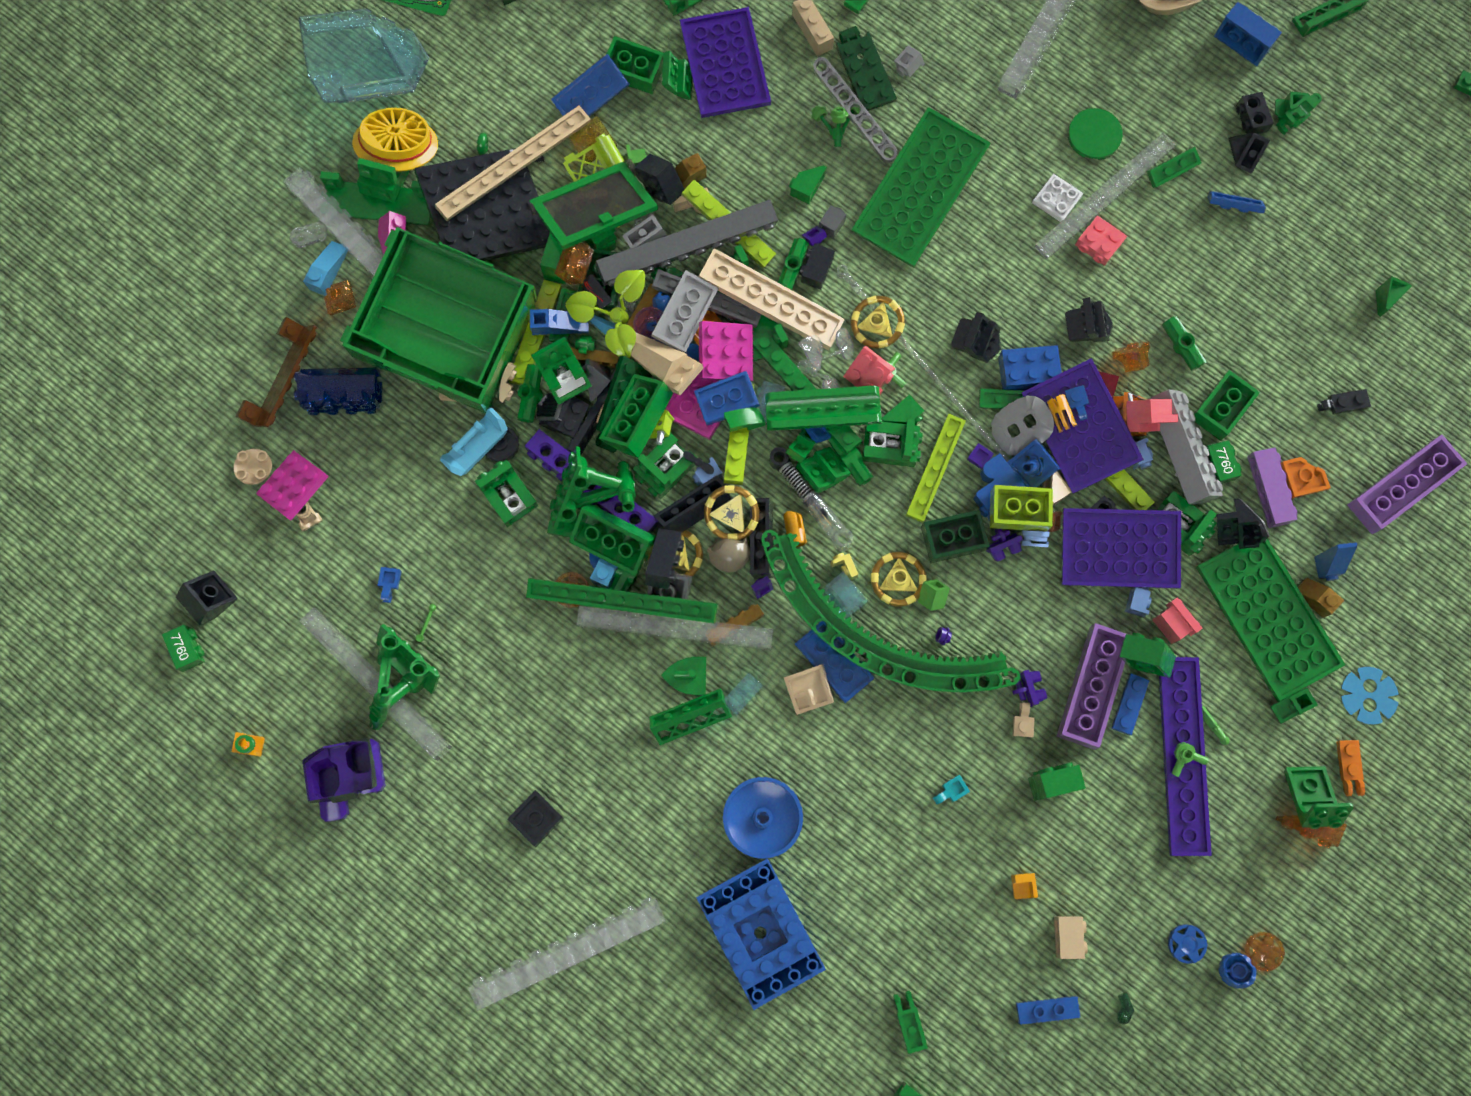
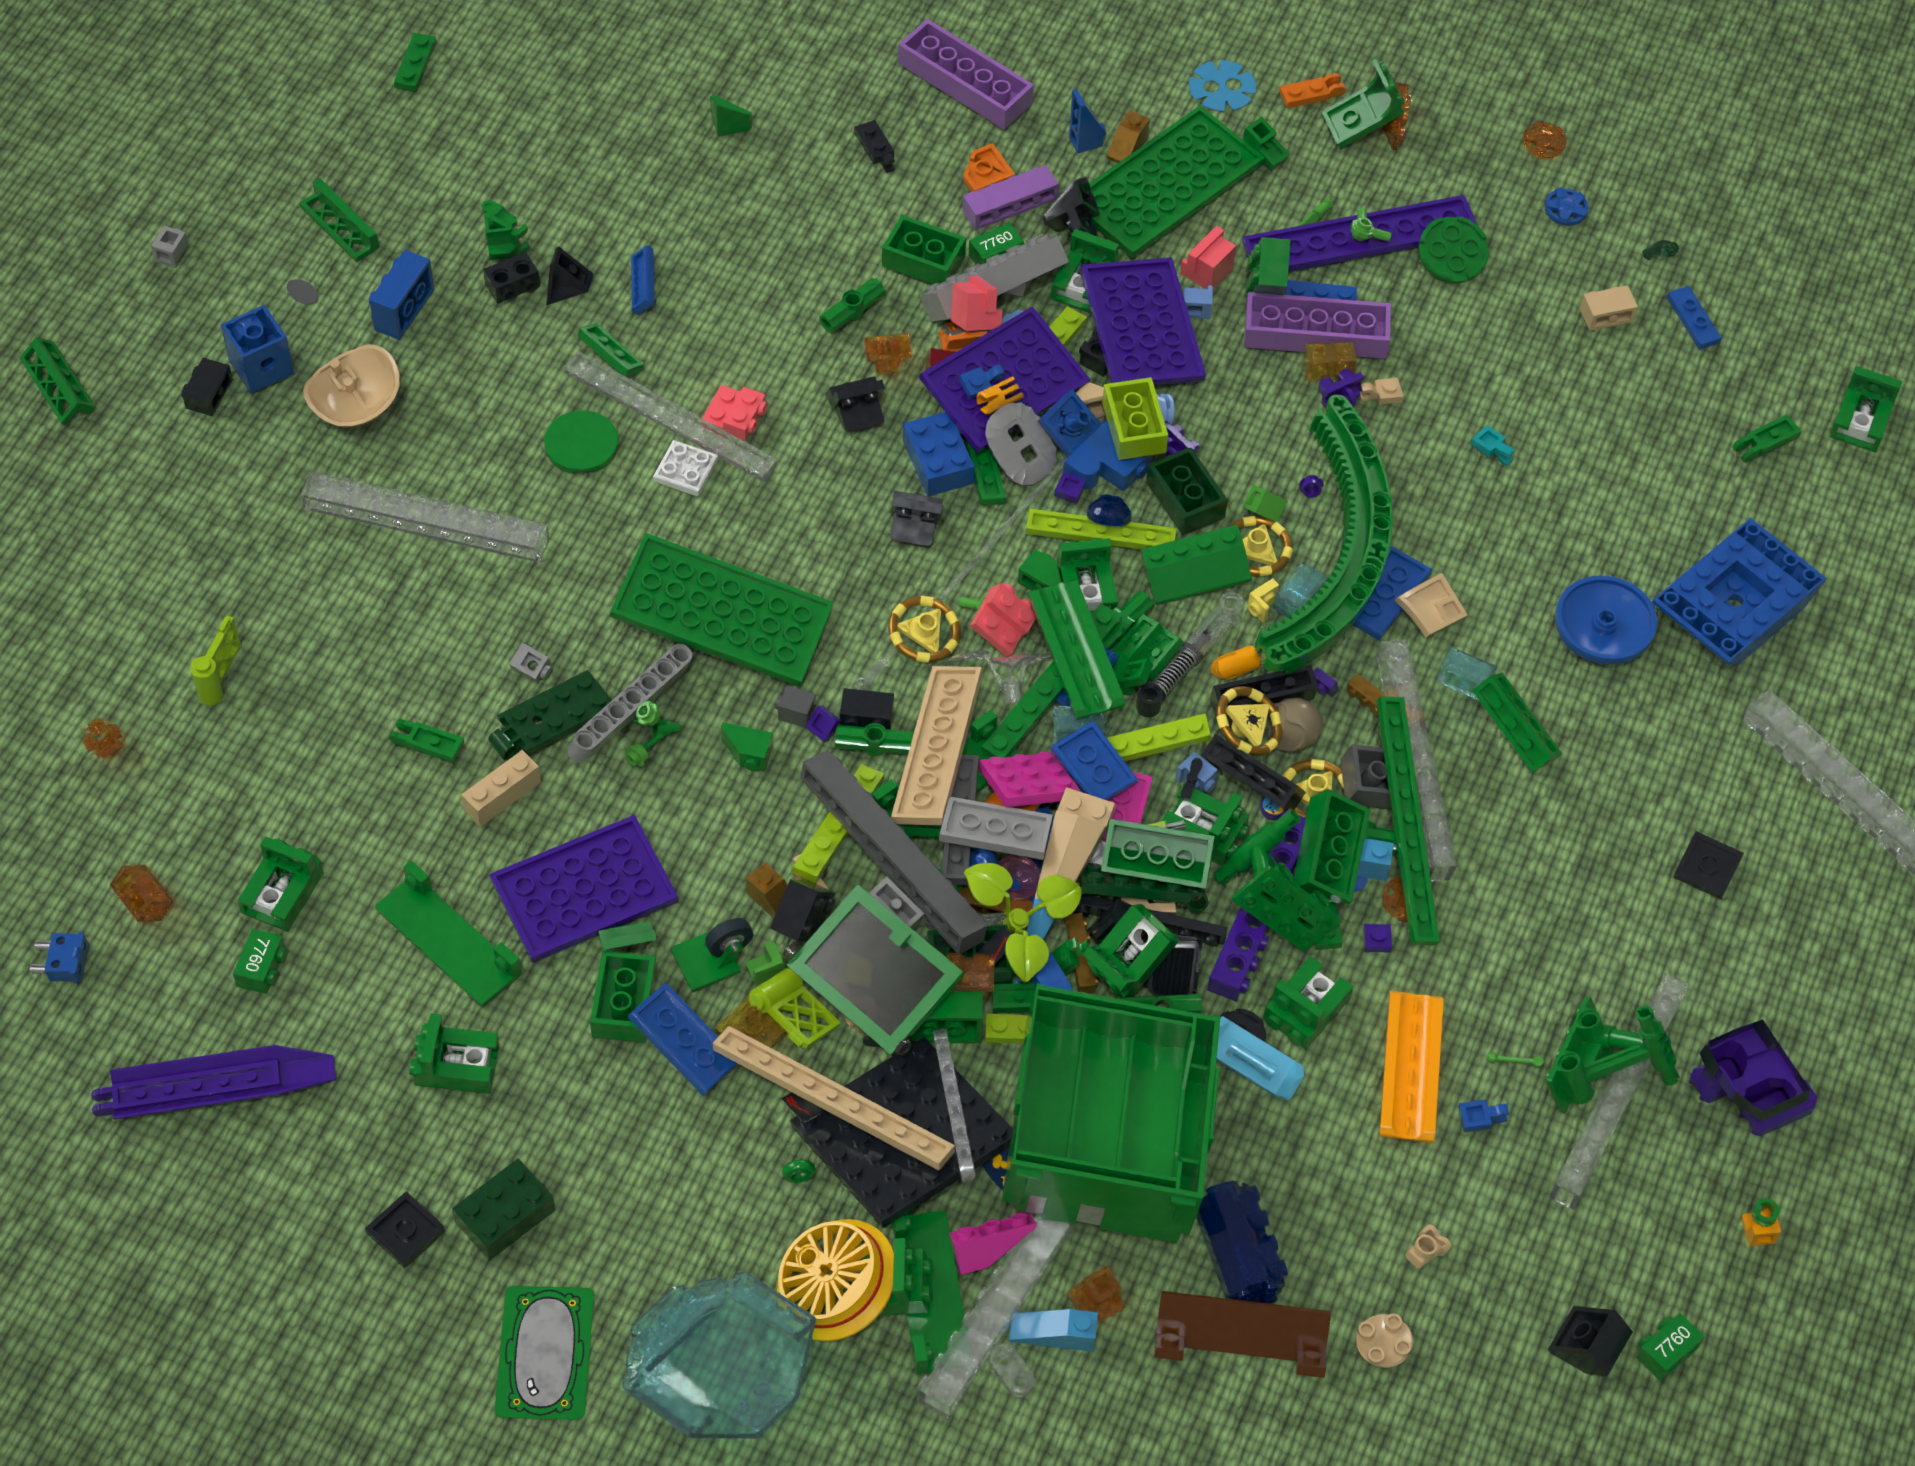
camera: 105 degrees left, 20 degrees down
(292, 485) = (1396, 1268): dark pink plate -> none
(441, 549) = (1411, 1067): none -> light orange plate
(481, 230) = (954, 1105): none -> clear beam
(546, 559) = (1377, 938): none -> dark purple plate
(652, 125) = (713, 954): none -> green plate
(664, 558) = (1341, 773): black brick -> none
(687, 675) = (1463, 745): green shield -> none
(744, 418) = (1120, 733): green slope -> none
(885, 524) = (1196, 565): none -> green slope
(942, 475) = (1109, 511): none -> clear blue piece
(1024, 886) = (1568, 358): light orange panel -> none
(1056, 781) = (1448, 335): green brick -> none
(1058, 686) = (1328, 360): none -> clear yellow brick
(1154, 826) = (1453, 249): none -> green tile
(1237, 970) = (1577, 156): blue hair -> none

